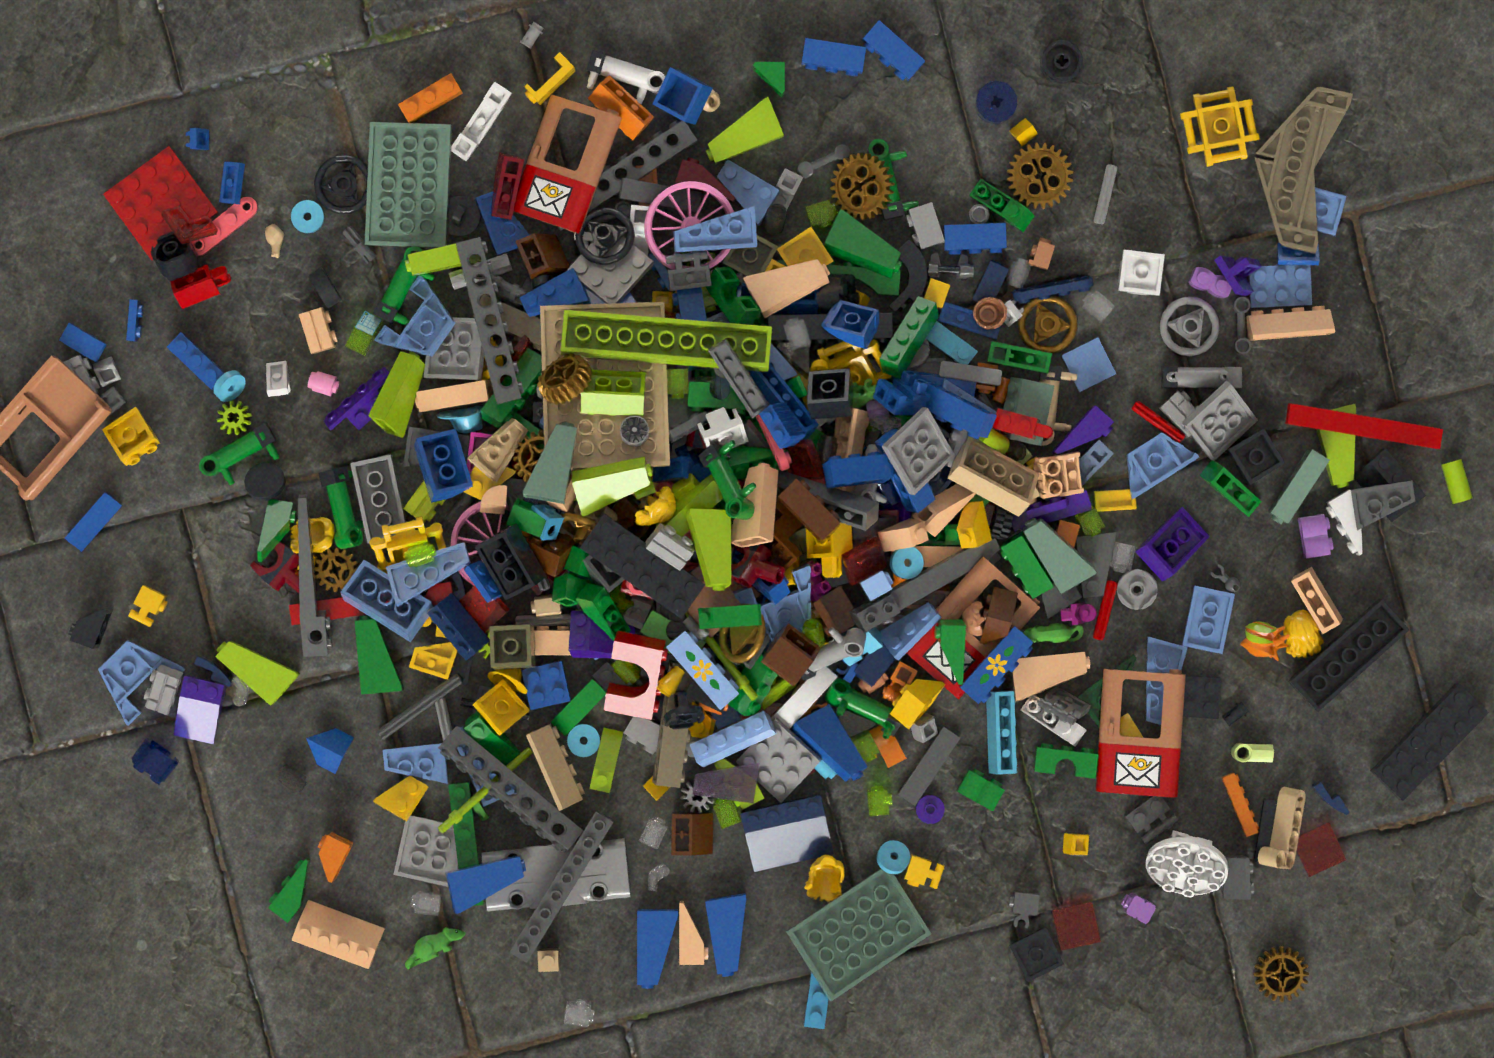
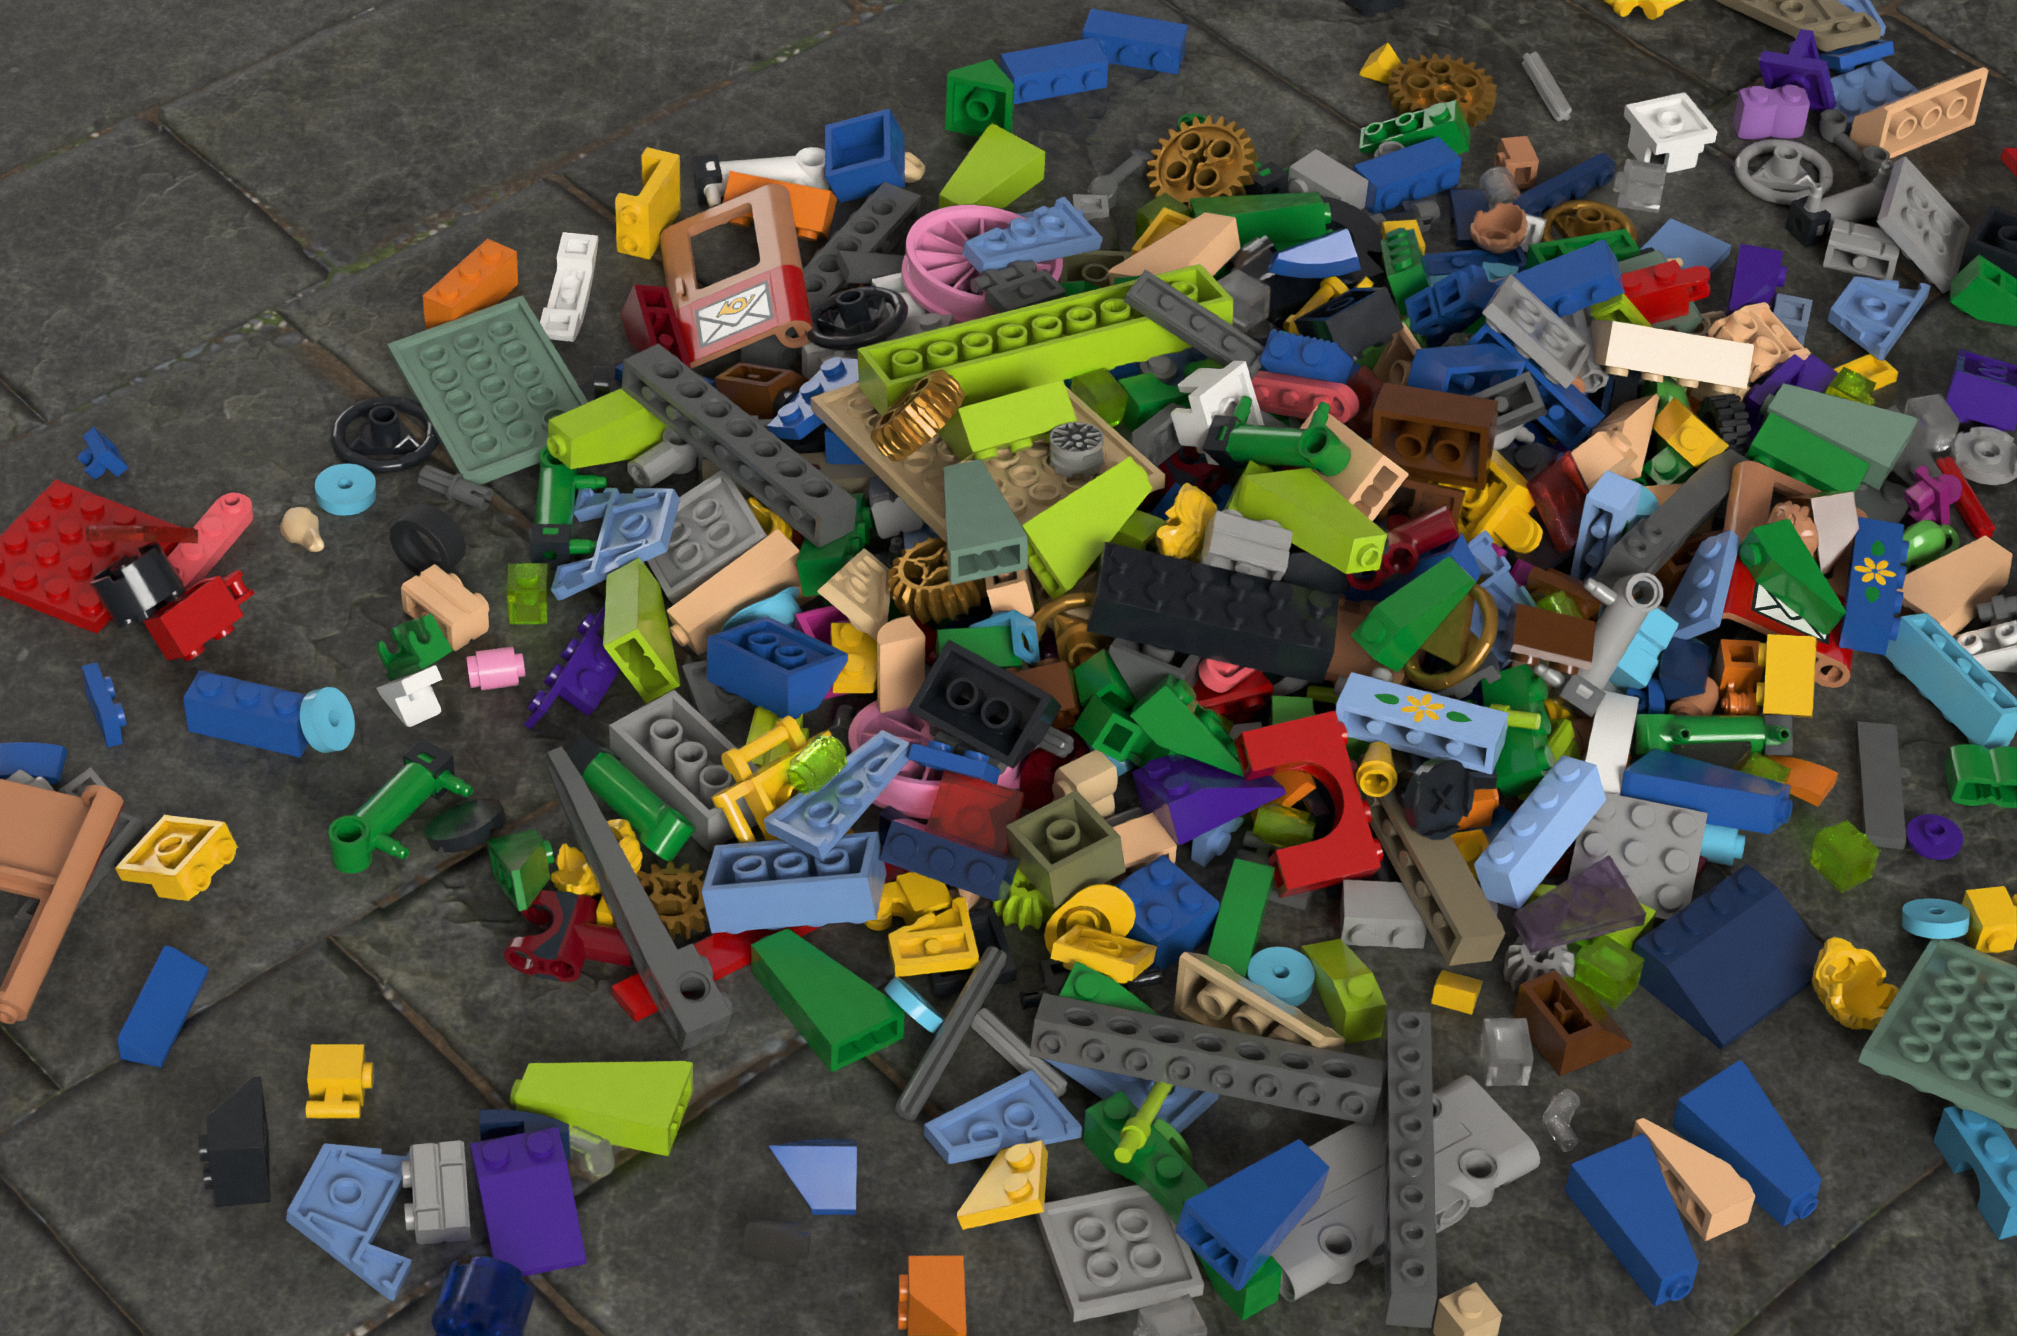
camera: 30 degrees left, 45 degrees down
(232, 183) = (191, 484): blue plate -> none
(235, 410) = (358, 765): lime gear -> none
(286, 363) = (419, 646): none -> green hinge
(410, 685) = (914, 1004): none -> medium azure piece
(532, 35) = (589, 180): light grey pin -> none
(924, 728) = (1827, 737): light grey slope -> none
(989, 112) = (1319, 41): clear blue brick -> none
(1158, 421) = (1829, 274): red axle -> none

